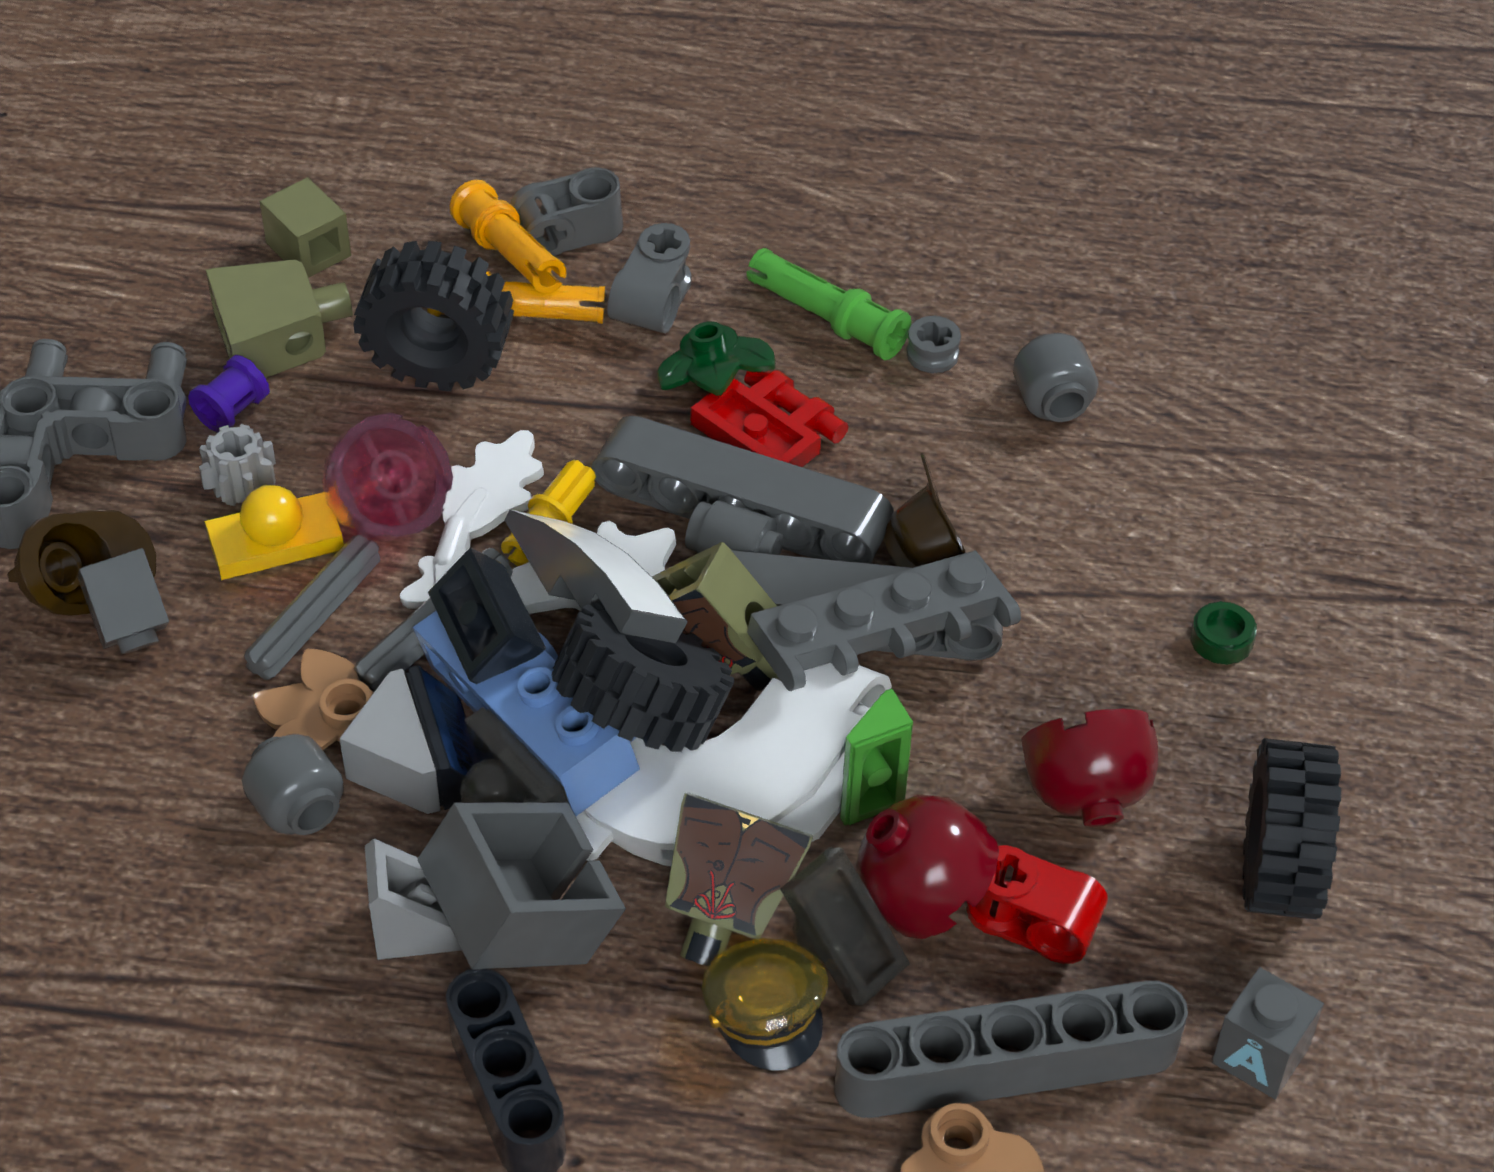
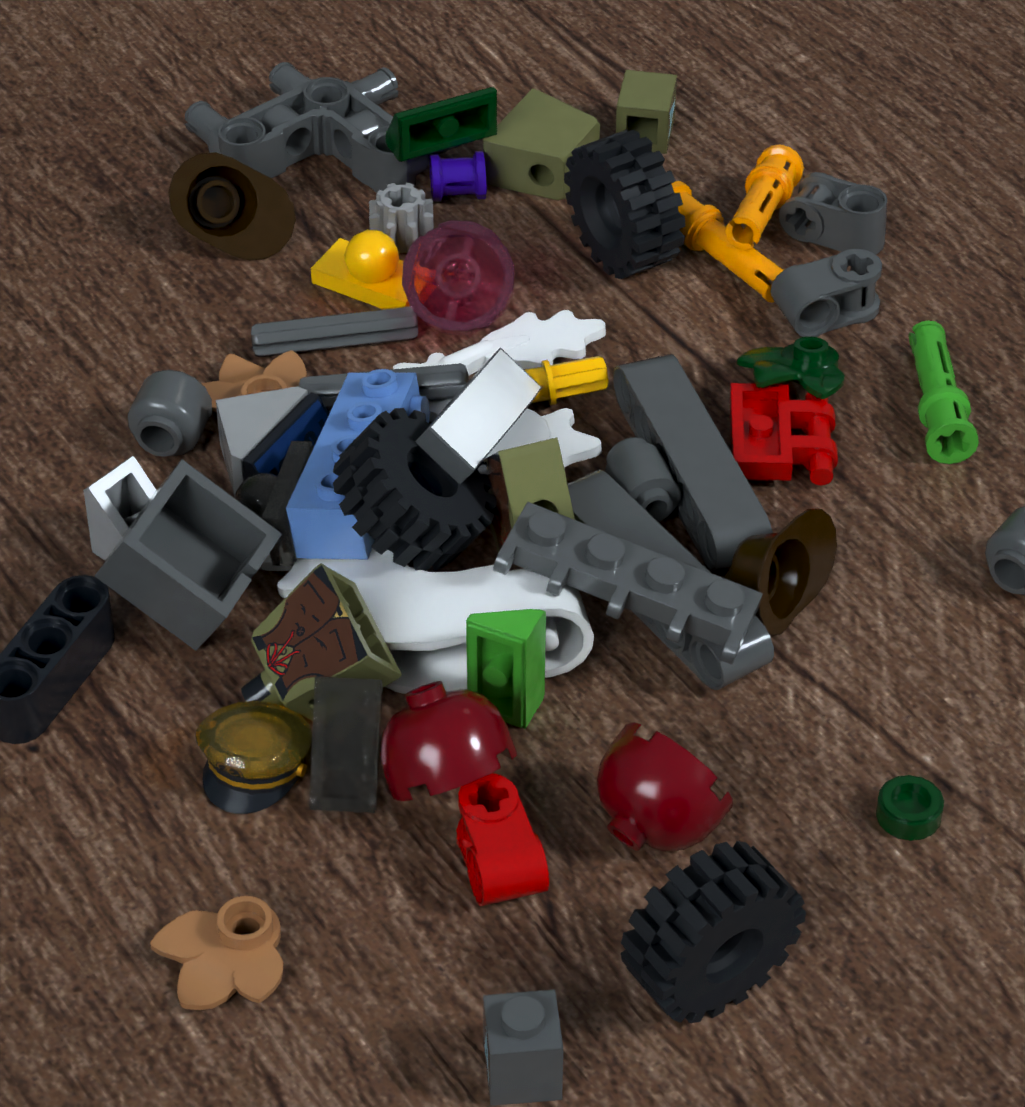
camera: 50 degrees right, 5 degrees down
(124, 601) = (220, 242): dark grey brick -> none
(197, 356) = (443, 124): none -> dark green slope
(485, 617) = (378, 384): black slope -> none
(933, 344) = (981, 485): dark grey bush -> none
(986, 1072) = (352, 908): dark grey beam -> none

